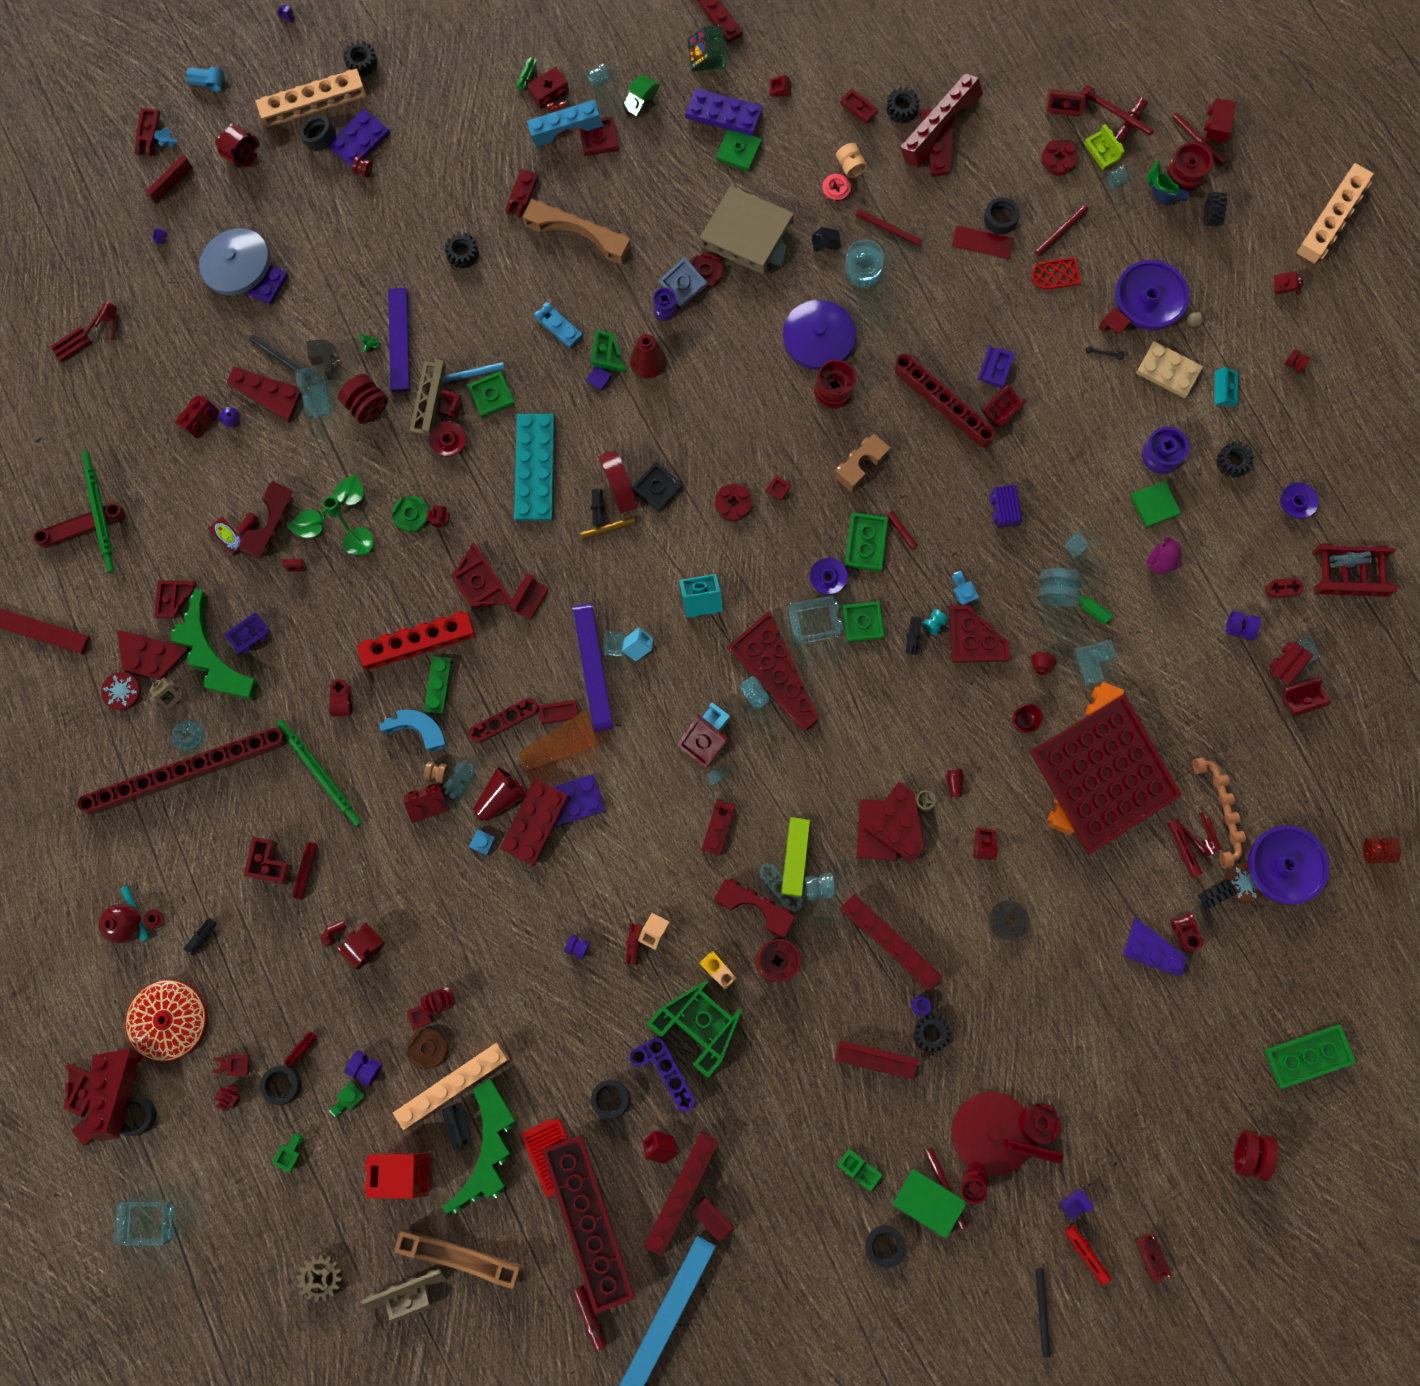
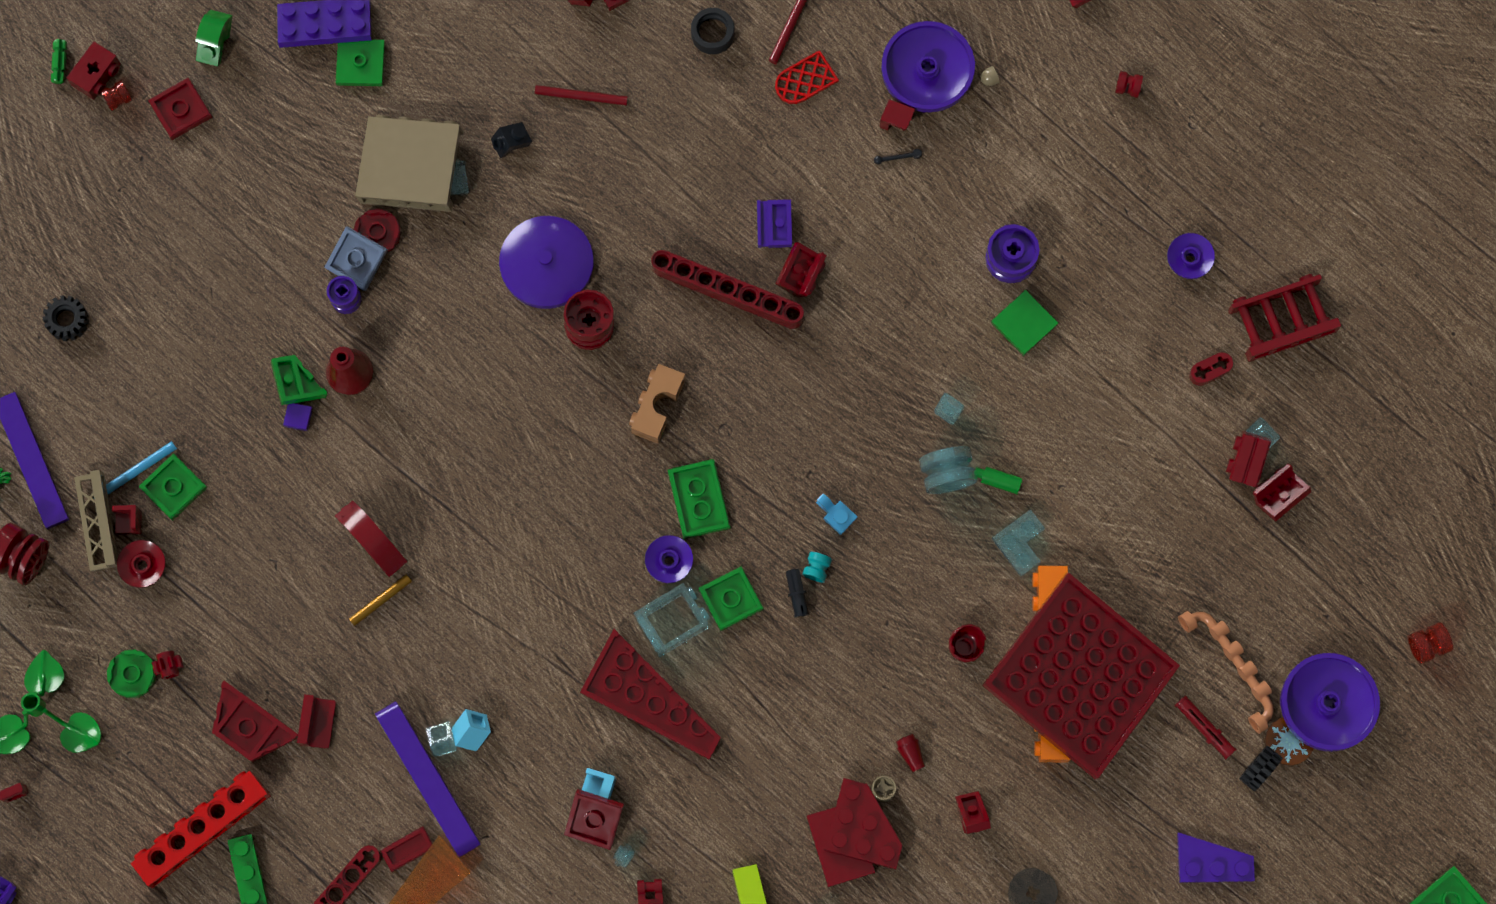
camera: 20 degrees left, 0 degrees up
(521, 192) = (111, 215): dark red hinge -> none
(534, 467) = (261, 558): teal plate -> none
(545, 218) = (152, 239): medium nougat arch -> none
(558, 325) = (222, 369): dark azure plate -> none
(582, 116) = (150, 95): dark azure arch -> none
(597, 508) = (358, 580): black axle -> none
(598, 75) = (149, 31): clear light blue wheel -> none
(657, 487) = (421, 526): black tile -> none
(701, 595) = (525, 641): teal slope -> none
(730, 492) = (532, 517): dark red plate -> none
(754, 693) = (633, 736): clear light blue gear -> none
(778, 488) = (568, 473): dark red plate -> none
(840, 181) = (500, 58): coral gear -> none
(851, 160) = (501, 25): light nougat wheel -> none
(867, 254) = (564, 142): clear light blue wheel -> none
(902, 530) = (736, 468): dark red piece -> none
(975, 638) = (870, 568): dark red plate -> none
(982, 242) = (702, 71): dark red sticker -> none
(1006, 506) = (849, 393): dark purple brick -> none
(1043, 662) = (961, 568): dark red cone -> none
(1165, 557) = (1058, 385): magenta cylinder -> none
(1169, 369) = (982, 149): tan plate -> none
(1187, 931) = (1242, 825): dark red piece -> none
(1211, 844) = (1234, 710): dark red plant -> none
(1226, 387) = (1057, 146): teal slope -> none
(1242, 452) = (1098, 246): black tyre -> none
(1249, 627) = (1186, 431): dark purple wheel -> none
(1350, 559) = (1274, 307): clear light blue pin -> none

